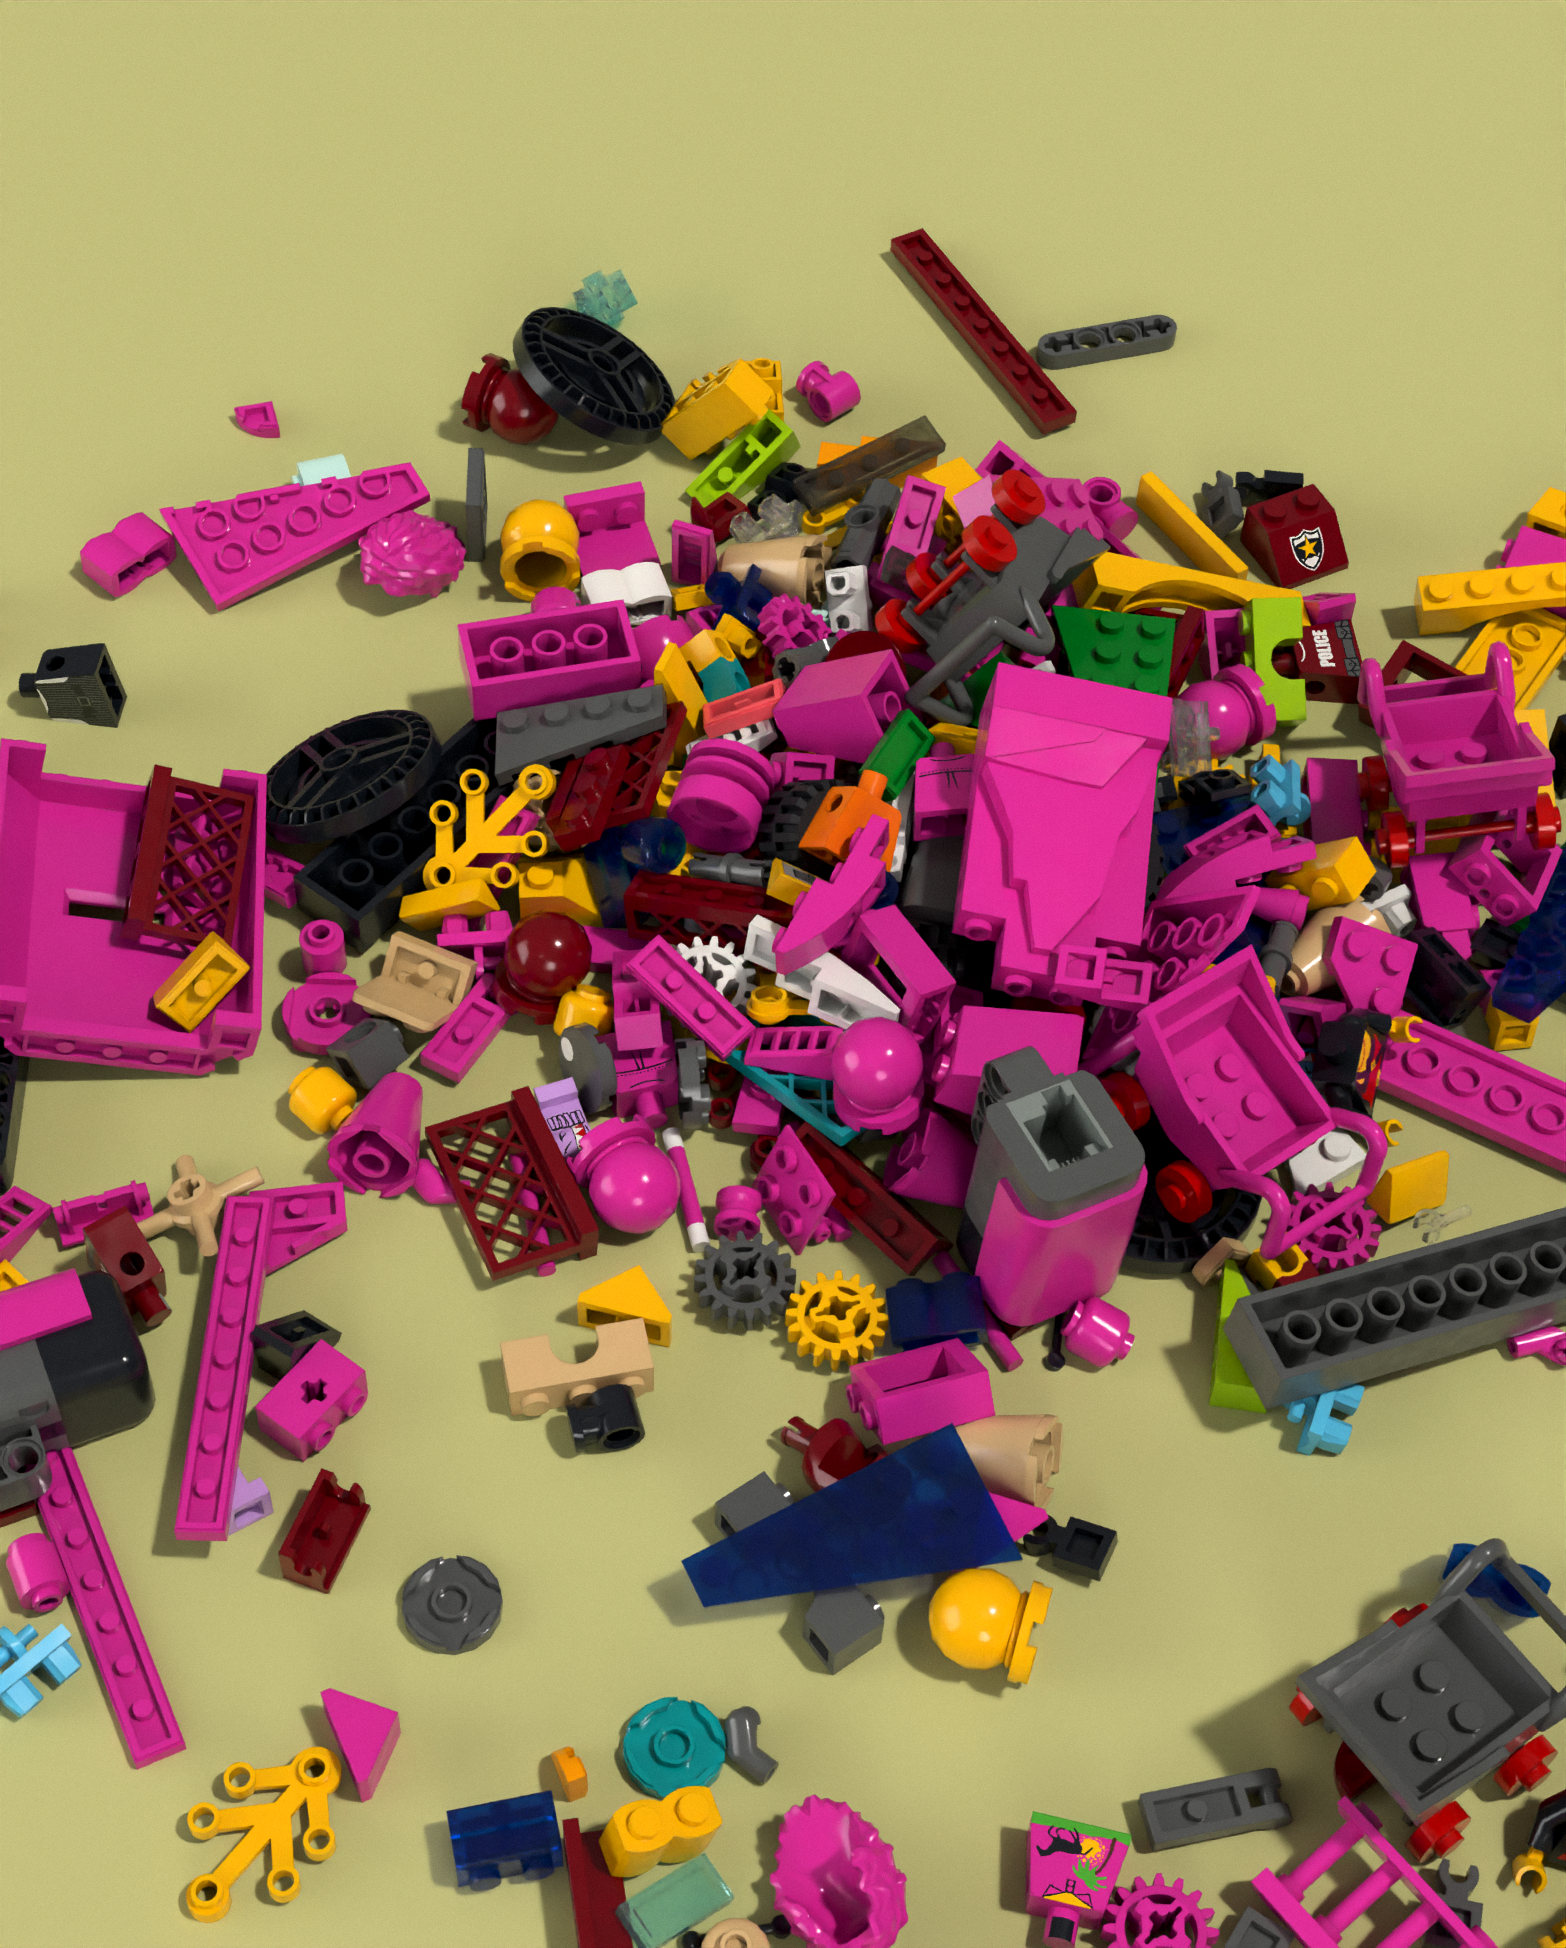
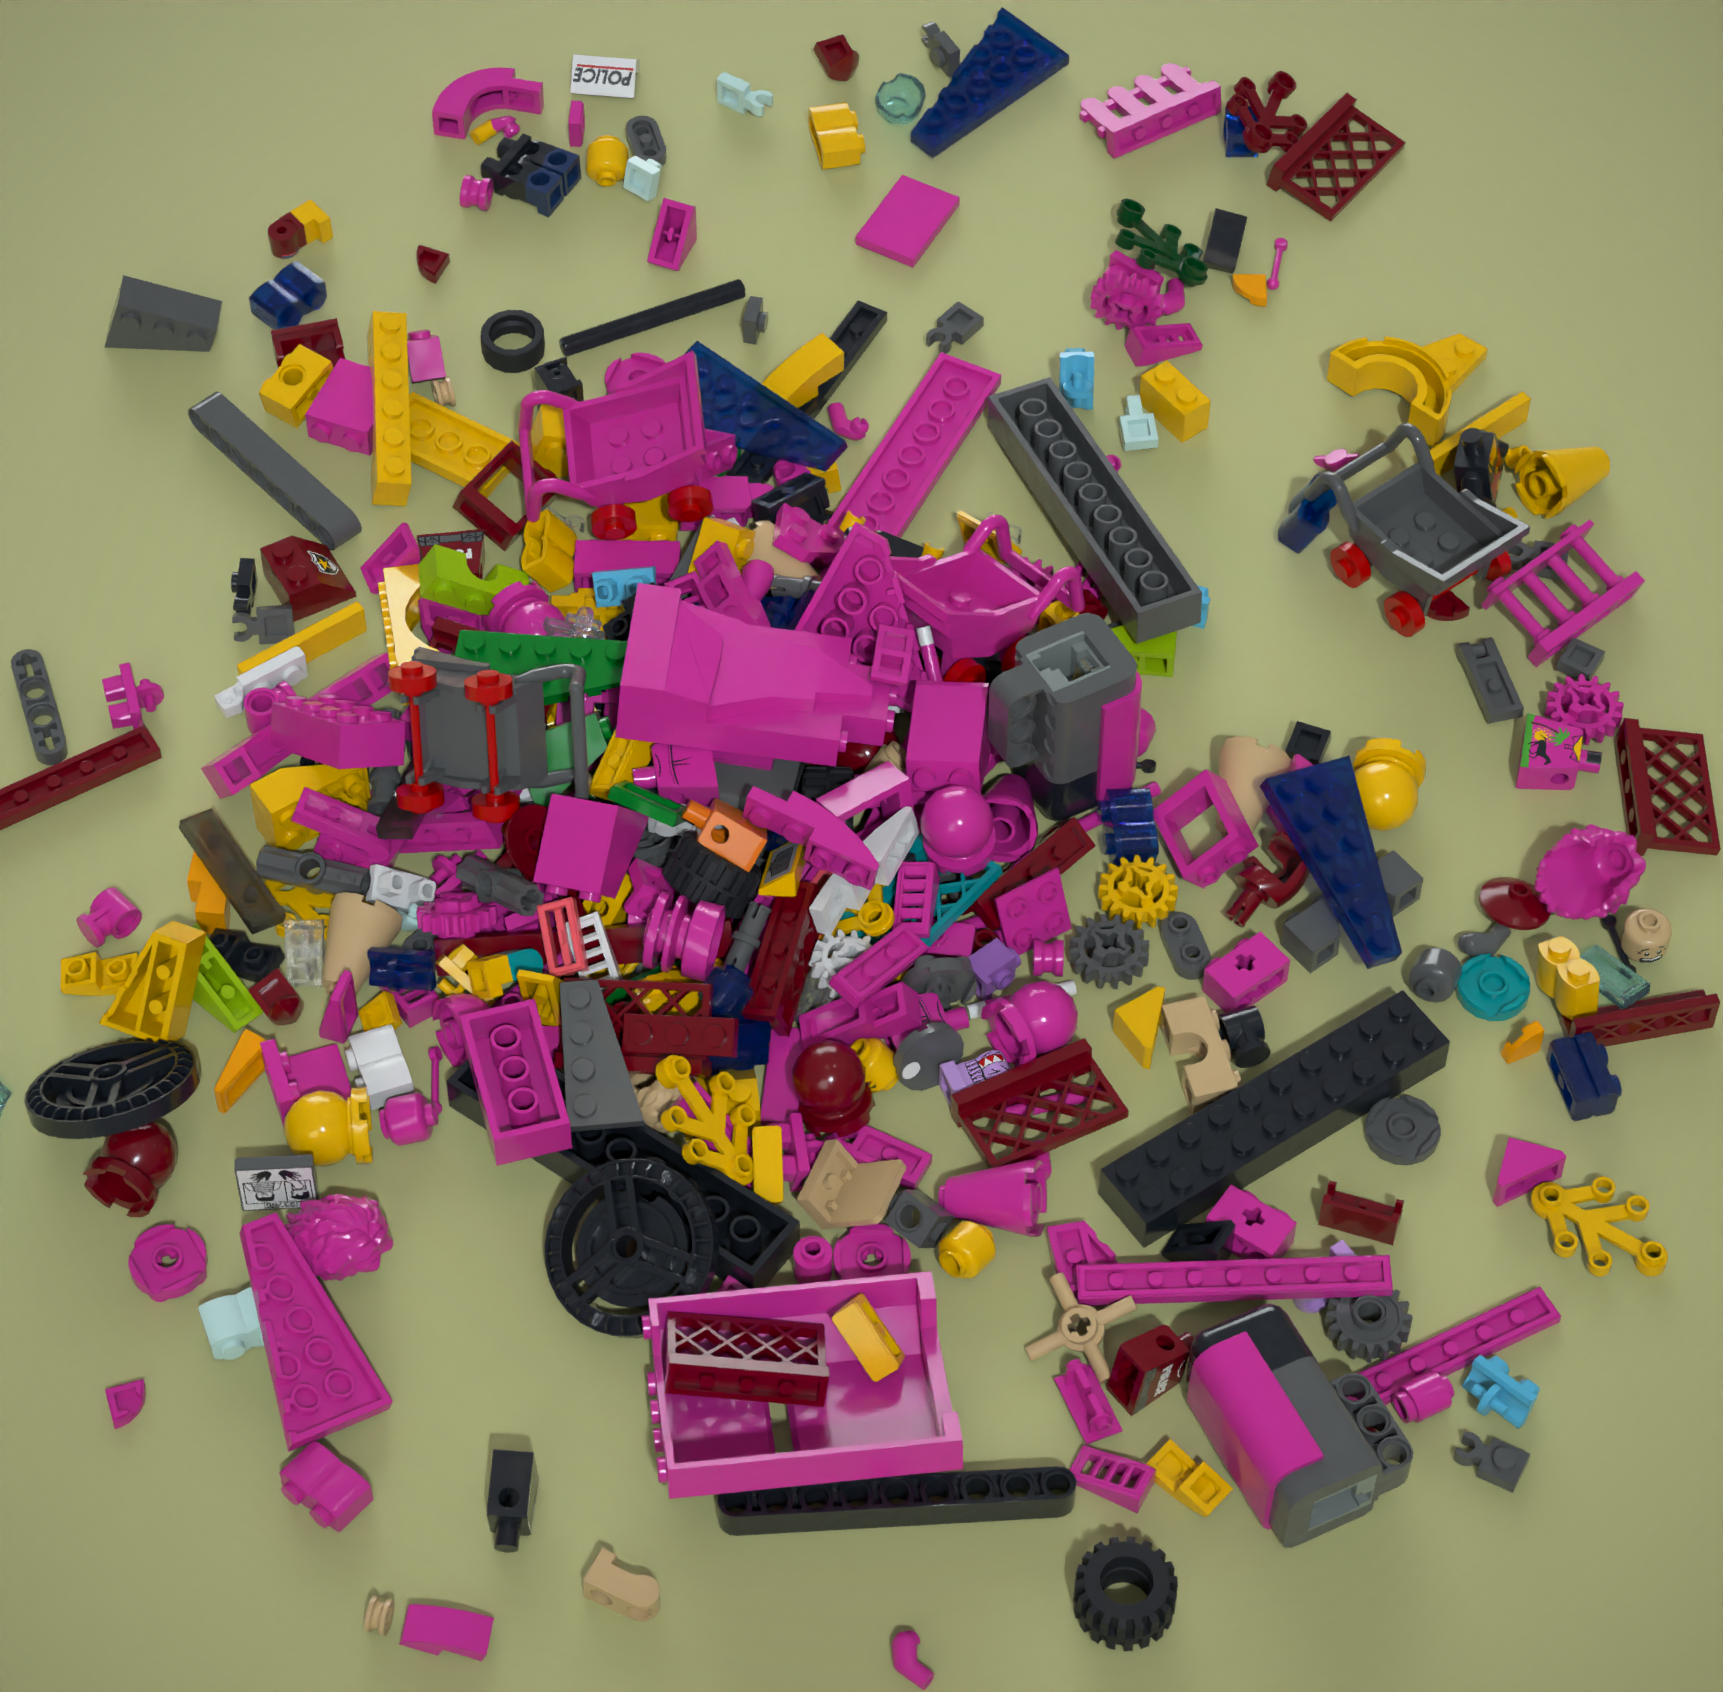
camera: 90 degrees left, 0 degrees up
(132, 1529) = (1365, 1339): none -> dark grey gear
(427, 434) = (172, 1281): none -> dark pink plate
(478, 1450) = (1272, 1118): none -> black brick
(656, 488) = (240, 1071): none -> light orange slope
(686, 1664) = (1437, 973): none -> dark grey head
(701, 1432) = (1245, 973): none -> dark pink brick
(721, 1150) = (994, 968): none -> medium lavender brick
(761, 1377) = (1182, 943): none -> dark grey plate
(794, 1766) = (1513, 903): none -> dark red dish
(1113, 404) = (122, 686): none -> dark pink hips
(1154, 514) = (285, 667): none -> white hinge
(1337, 736) = (549, 551): none -> yellow brick
(1446, 514) = (274, 470): none -> dark grey beam

